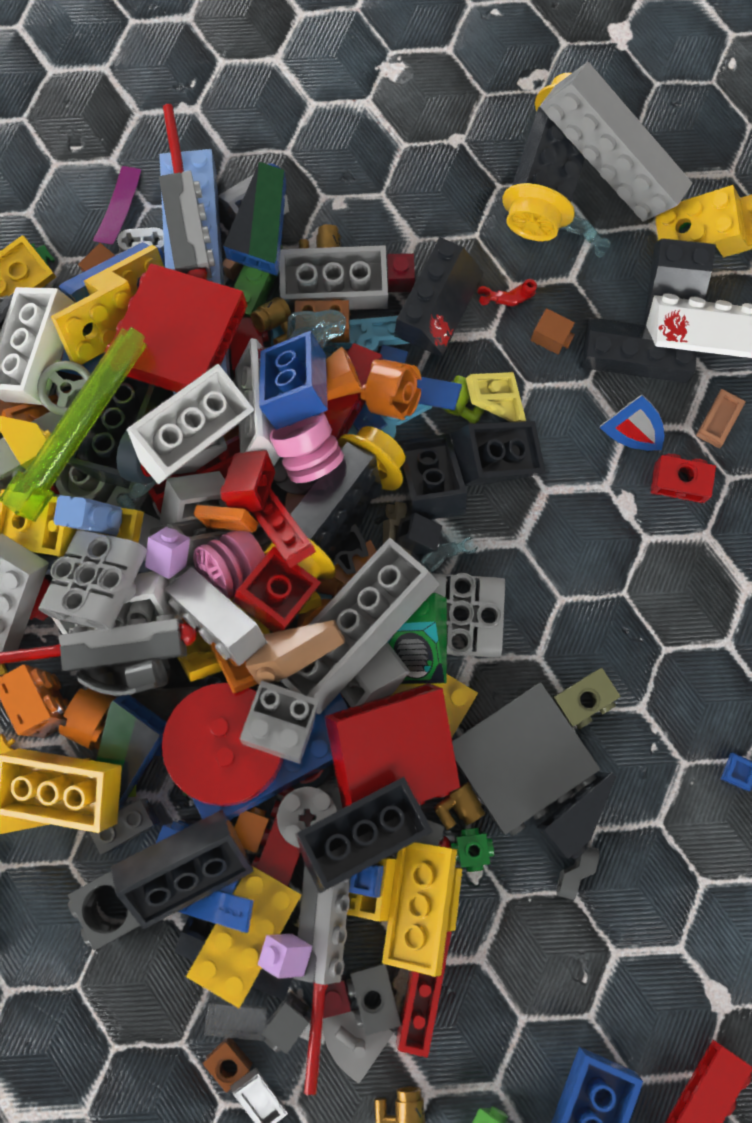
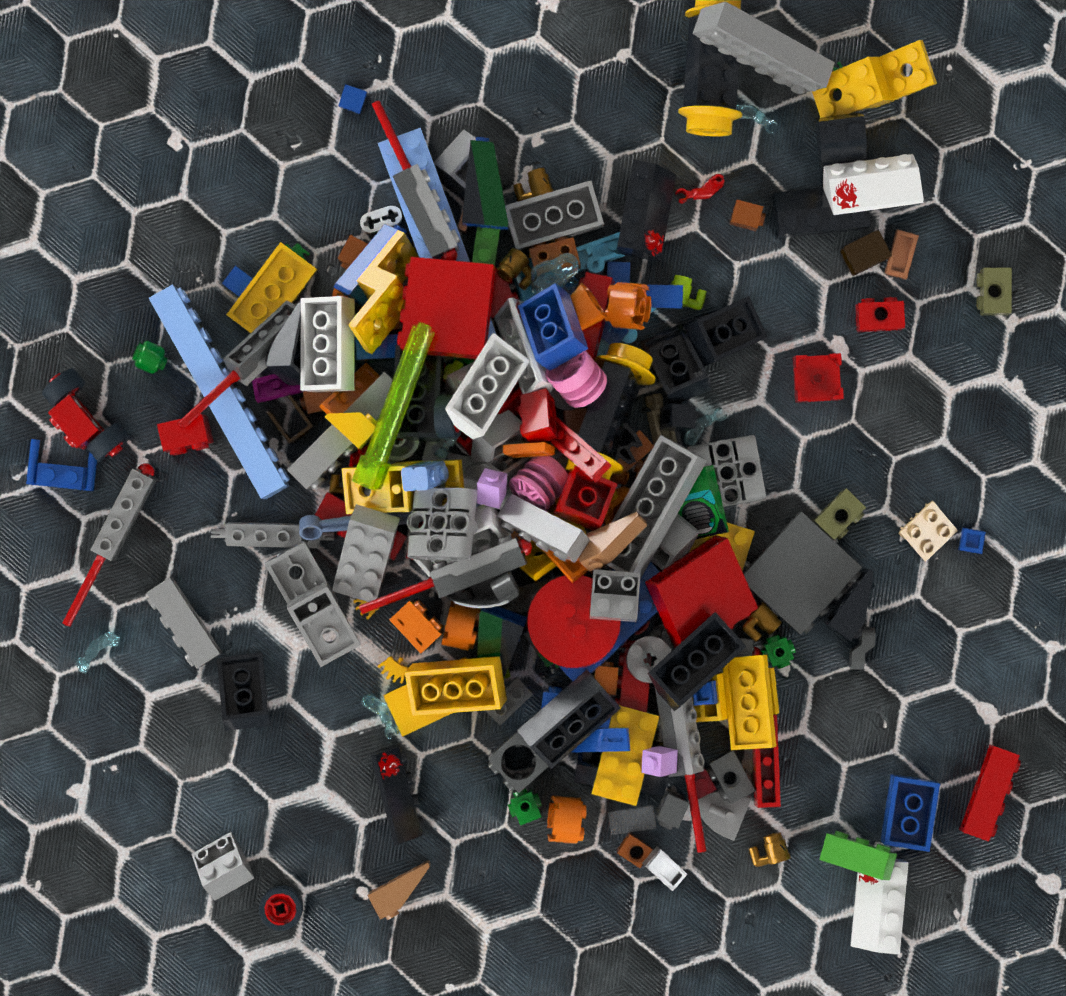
camera: 15 degrees left, 10 degrees up
(50, 373) = (369, 392): light grey piece -> none
(105, 969) = (527, 814): none -> green brick
(118, 205) = (351, 193): magenta sticker -> none
(148, 1000) = (565, 819): none -> orange brick
(149, 114) = (352, 99): none -> blue tile
(400, 272) = (607, 195): dark red brick -> none
(497, 395) = (713, 283): light yellow wing -> none
(594, 532) = (817, 378): none -> red panel
(636, 425) = (832, 281): blue shield -> none
(683, 402) = (865, 253): none -> dark brown piece
(689, 745) = (928, 530): none -> tan hinge

